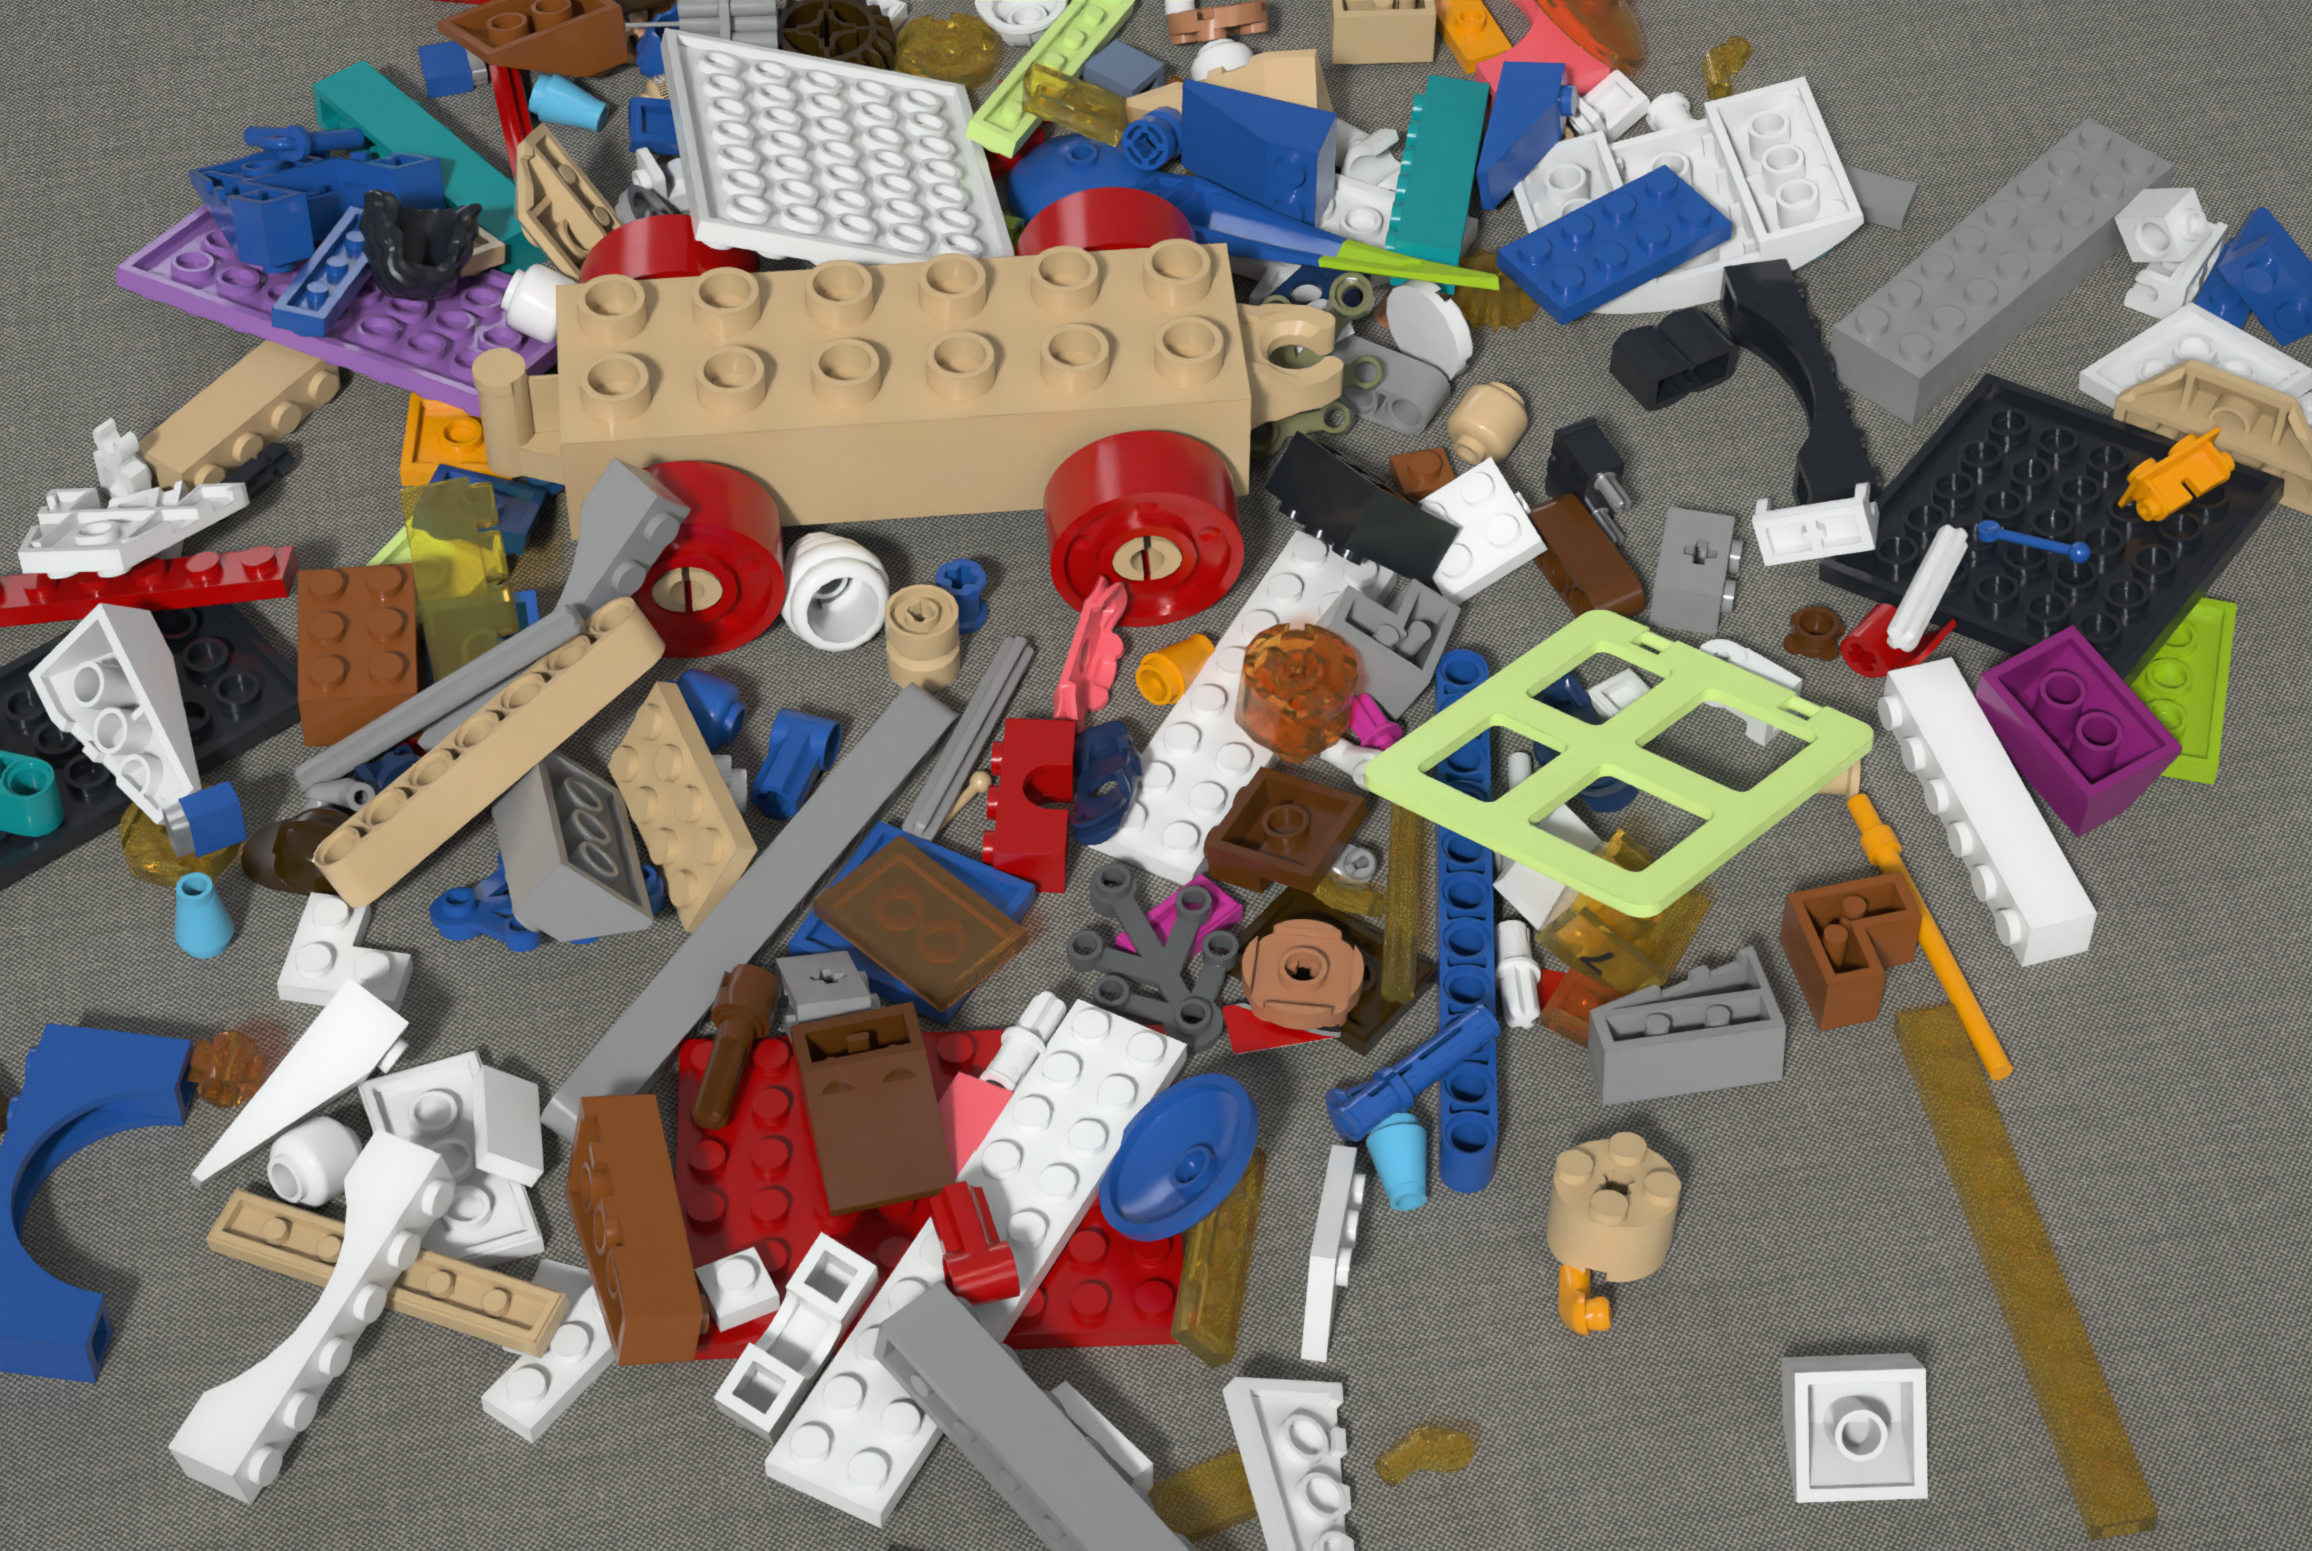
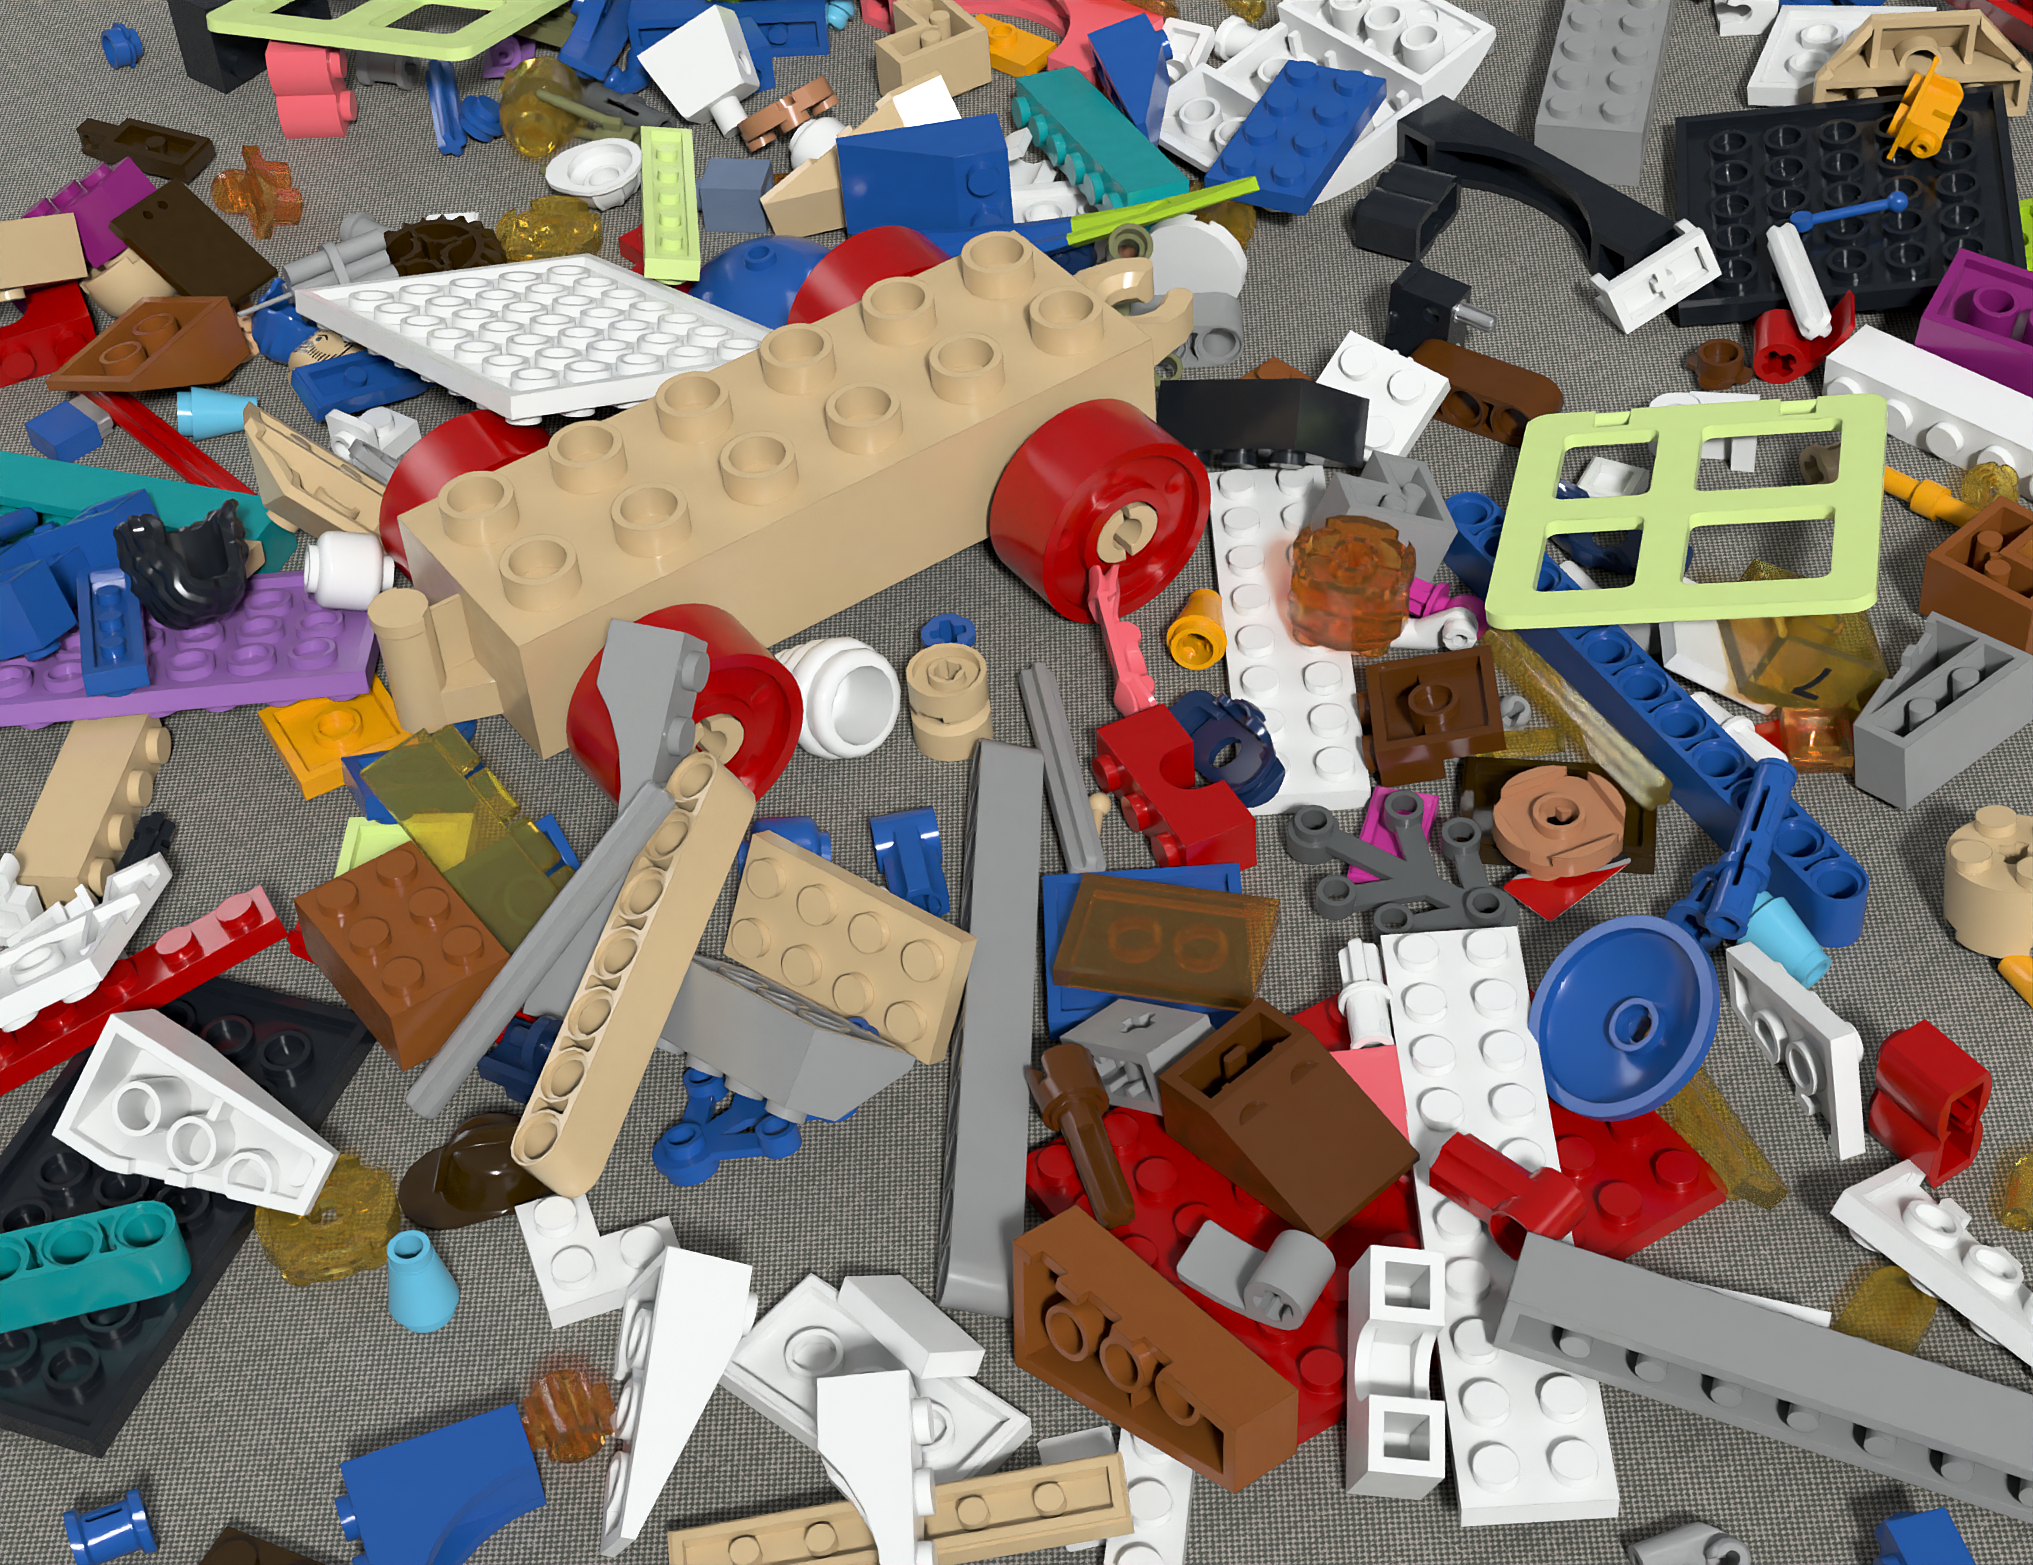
camera: 25 degrees left, 5 degrees down
(205, 821) = (363, 1183): blue piece -> none
(312, 1161) = (735, 1462): white head -> none
(342, 792) = (478, 1096): light grey arm -> none
(737, 1289) = (1293, 1352): white plate -> none
(766, 1214) = (1263, 1286): none -> light grey panel
(1073, 104) = (725, 213): clear yellow plate -> none
(1153, 138) = (816, 205): blue wheel -> none
(1372, 1346) = (1929, 1101): none -> red brick
(1487, 423) = (1299, 318): tan head -> none
(1693, 571) = (1581, 356): light grey brick -> none
(1934, 861) = (1982, 478): none -> clear yellow plate

